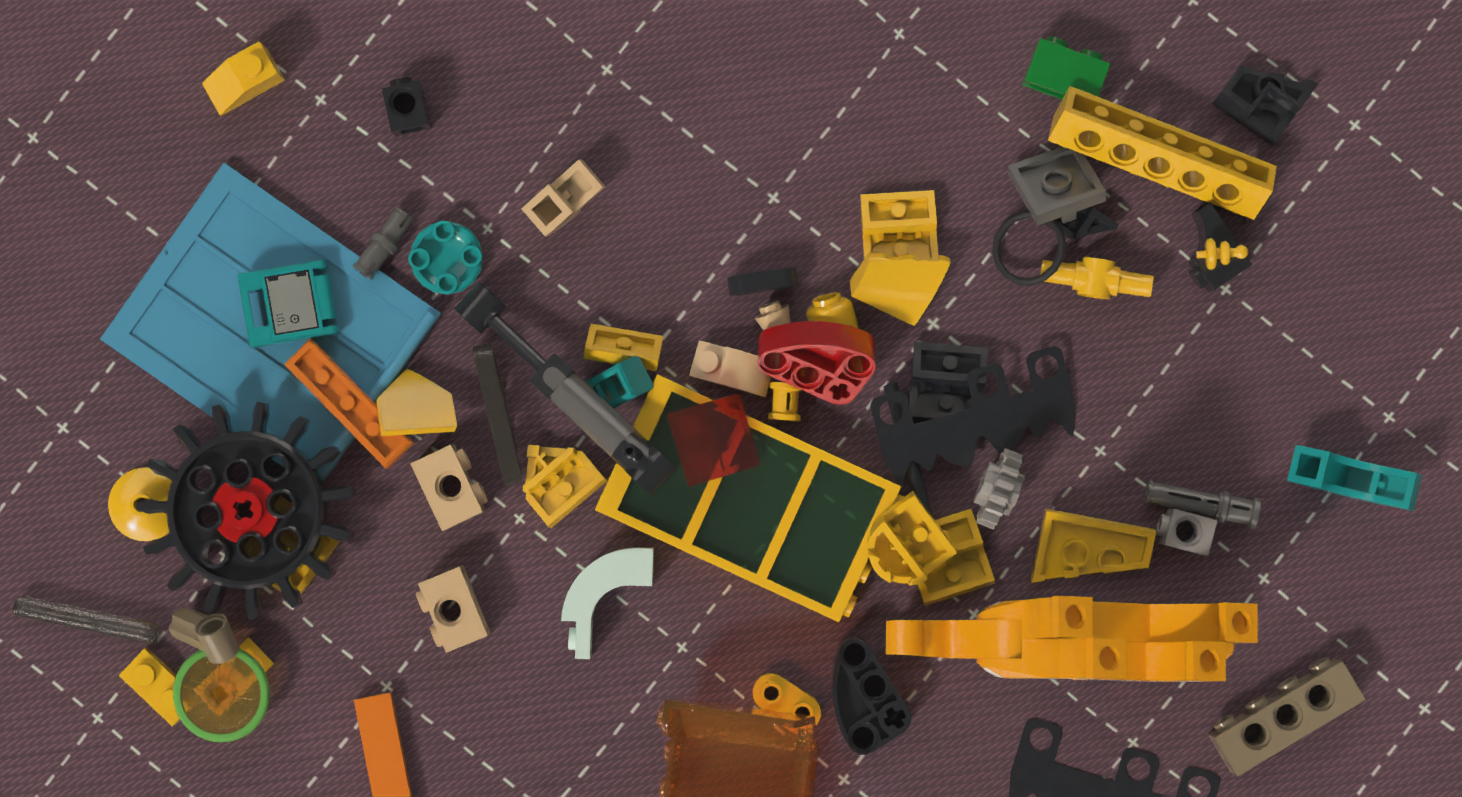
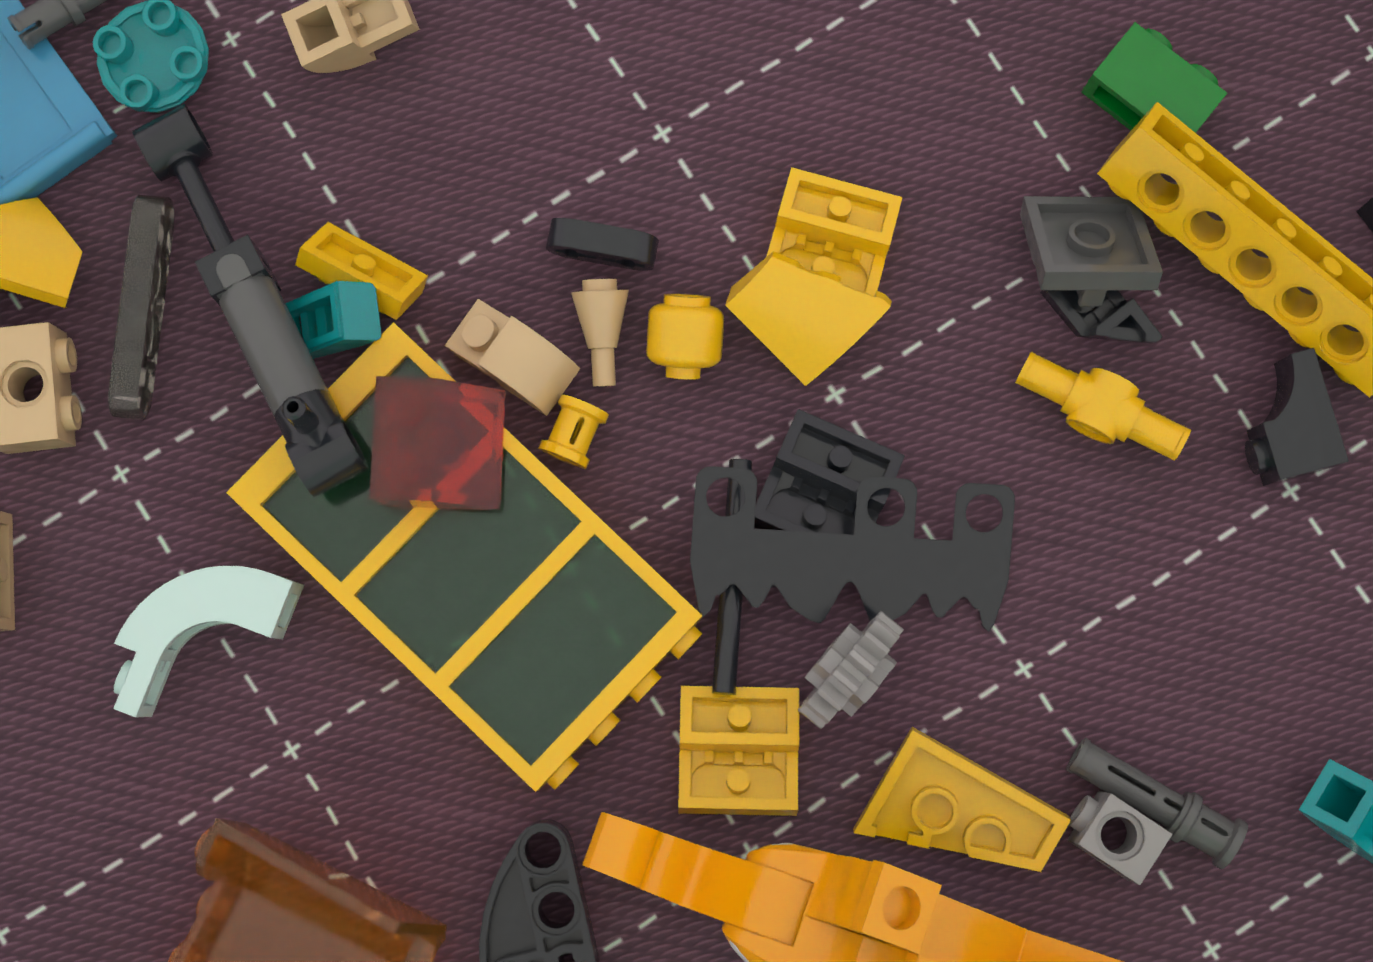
camera: 20 degrees right, 5 degrees down
(559, 481) = (196, 437): yellow slope -> none
(789, 696) = (422, 883): yellow plate -> none
(819, 358) = (661, 368): red beam -> none
(907, 543) = (681, 705): yellow slope -> none
(1021, 280) = (1031, 371): black piece -> none
(1223, 253) = (1312, 426): yellow hair -> none

